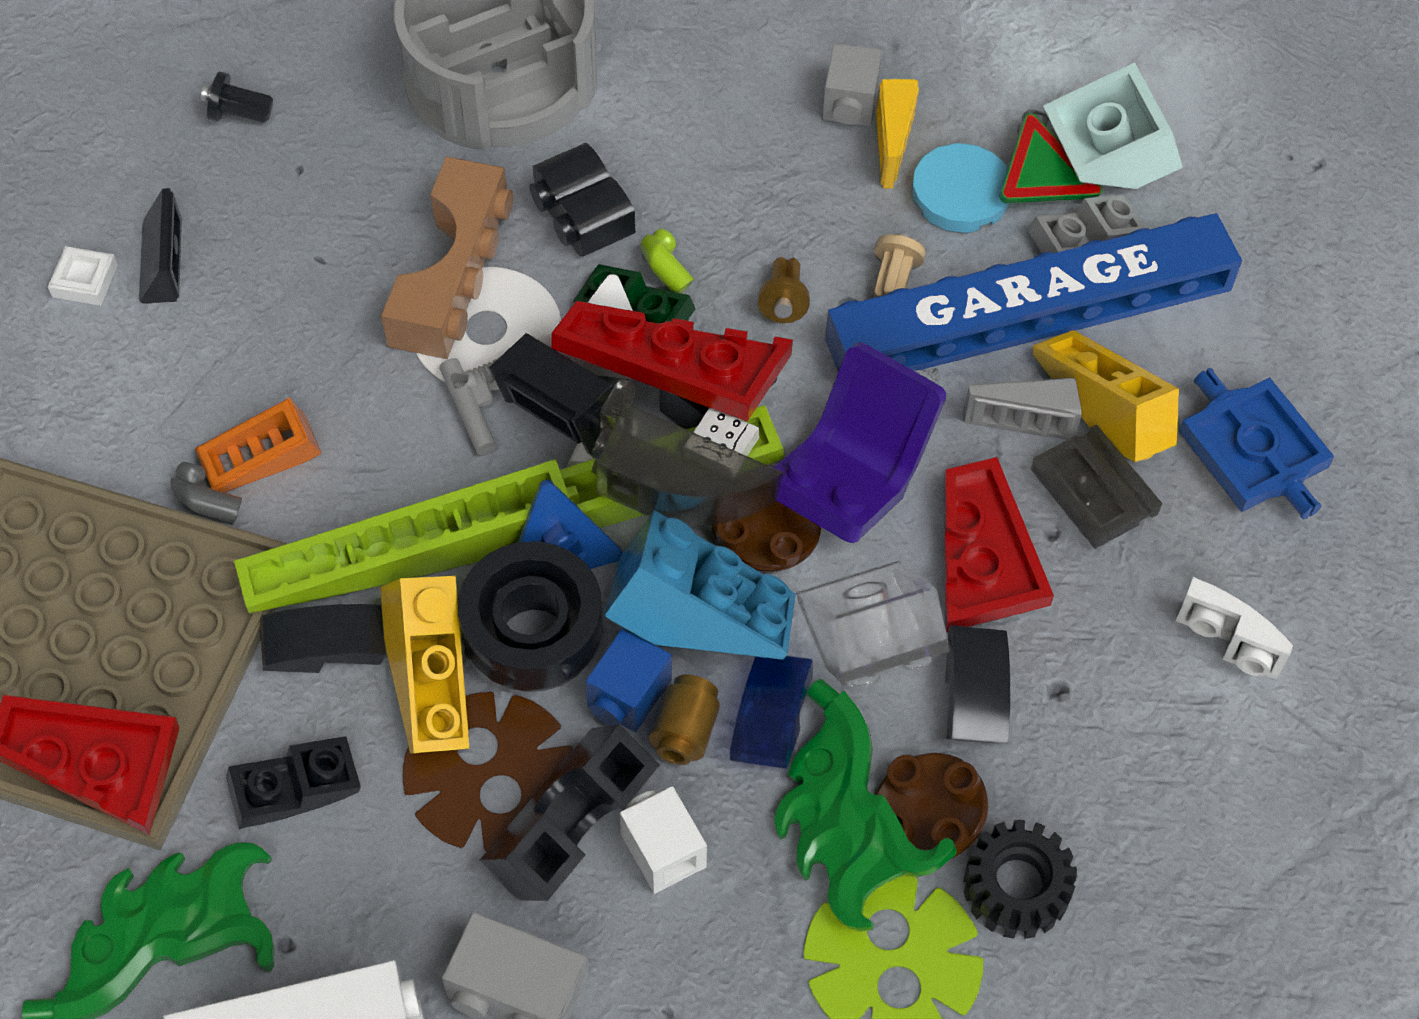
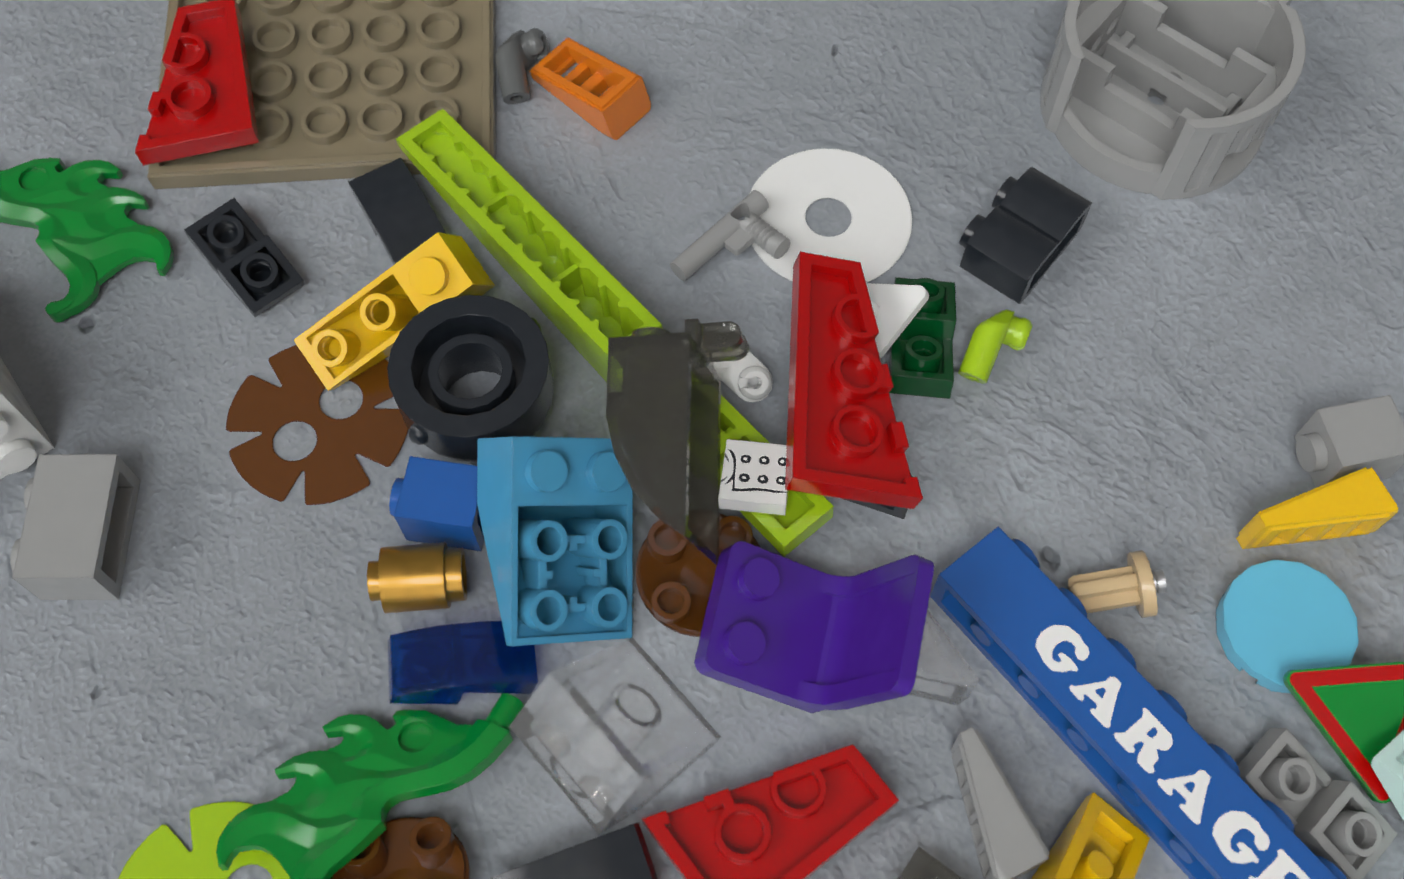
camera: 70 degrees right, 5 degrees up
(431, 305) = (817, 153): medium nougat arch -> none
(542, 840) = (220, 489): black arch -> none
(552, 389) = (757, 294): black window -> none
(561, 522) = (580, 371): blue piece -> none
(662, 838) = (270, 605): white brick -> none
(784, 296) = (1008, 479): pearl gold piece -> none

